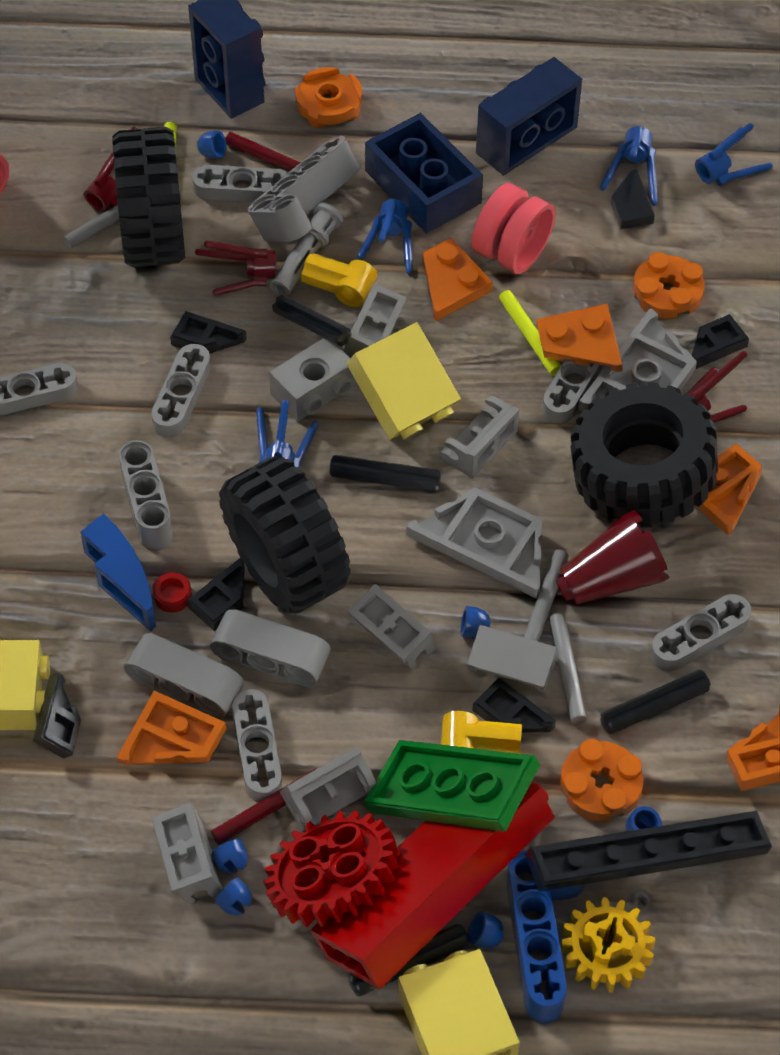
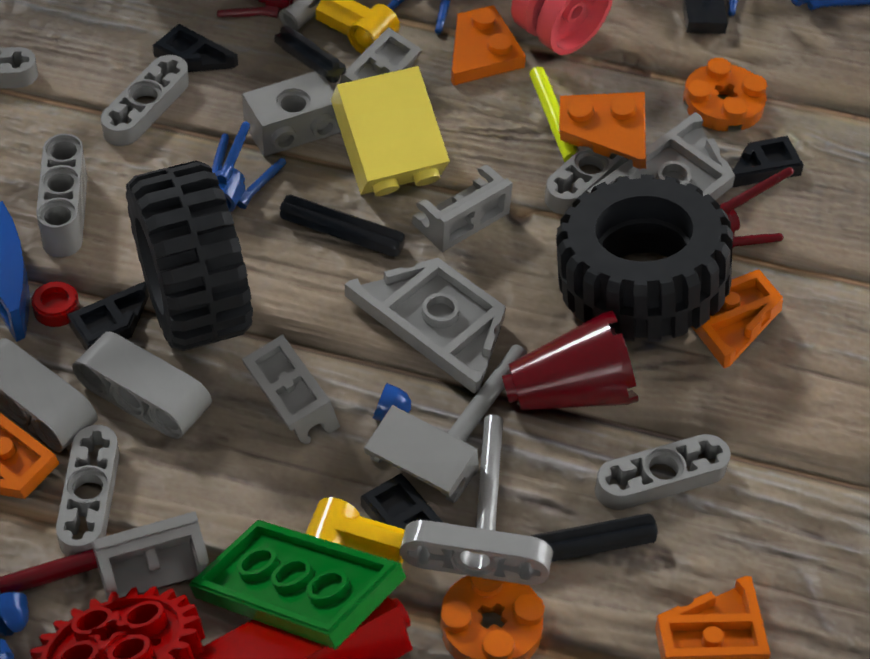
camera: 10 degrees right, 5 degrees down
(580, 731) = (504, 555): none -> light grey beam

